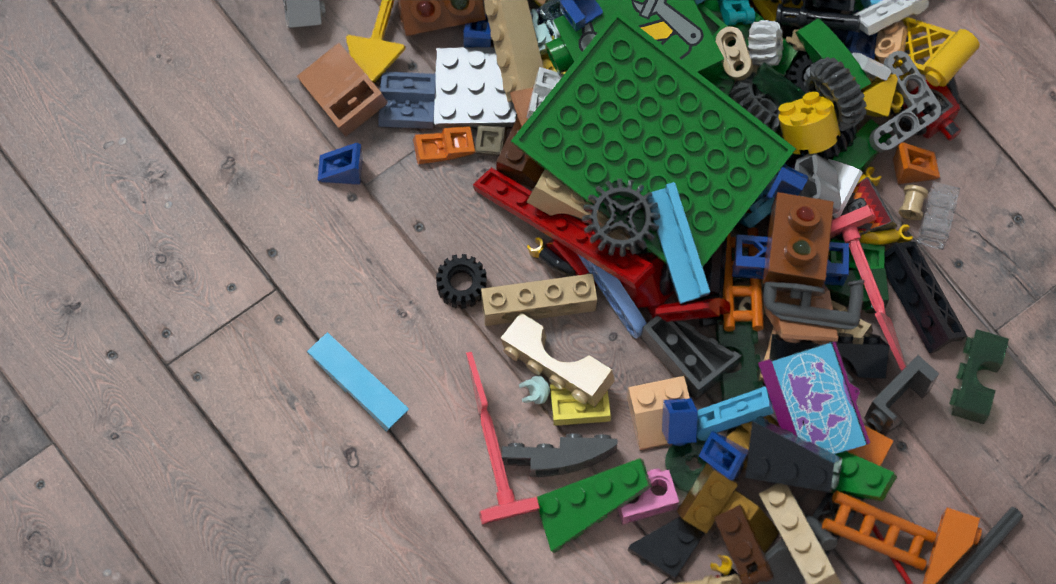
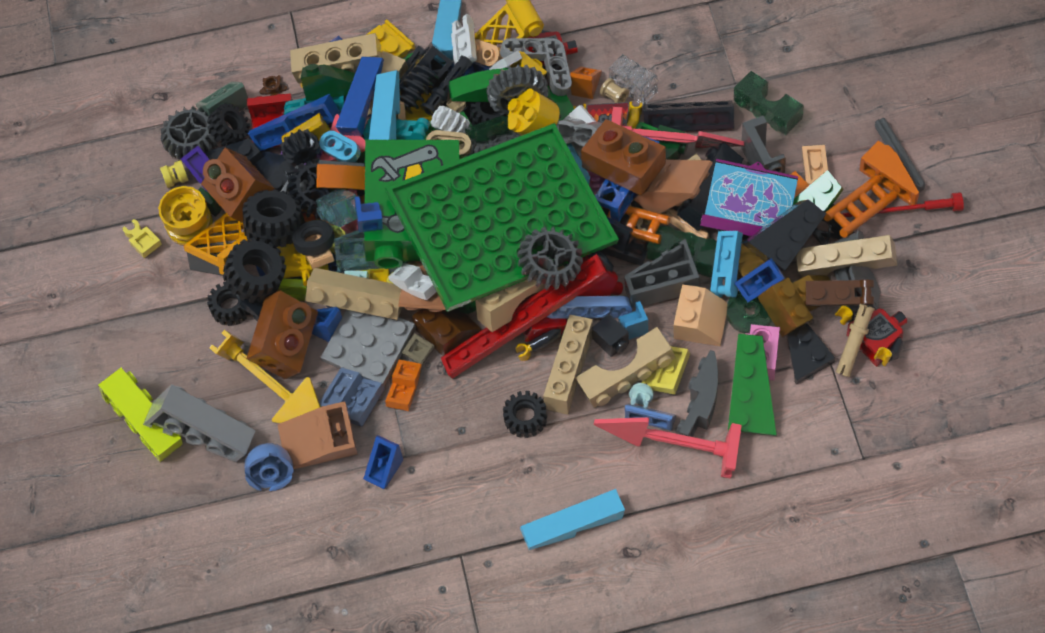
camera: 55 degrees left, 10 degrees down
(288, 55) = (268, 467): none -> medium blue cylinder
(518, 411) = (656, 418): none -> medium blue slope
(594, 328) = (610, 335): none -> black brick
(622, 347) = (635, 322): none -> dark azure panel
(678, 245) = (590, 230): medium azure fence -> none
(679, 421) = (717, 300): blue brick -> none
(693, 309) = (636, 252): red slope -> none
(788, 182) = (575, 143): blue panel -> none
(812, 315) = (681, 173): dark grey piece -> none
(918, 462) = (814, 162): none -> light nougat plate

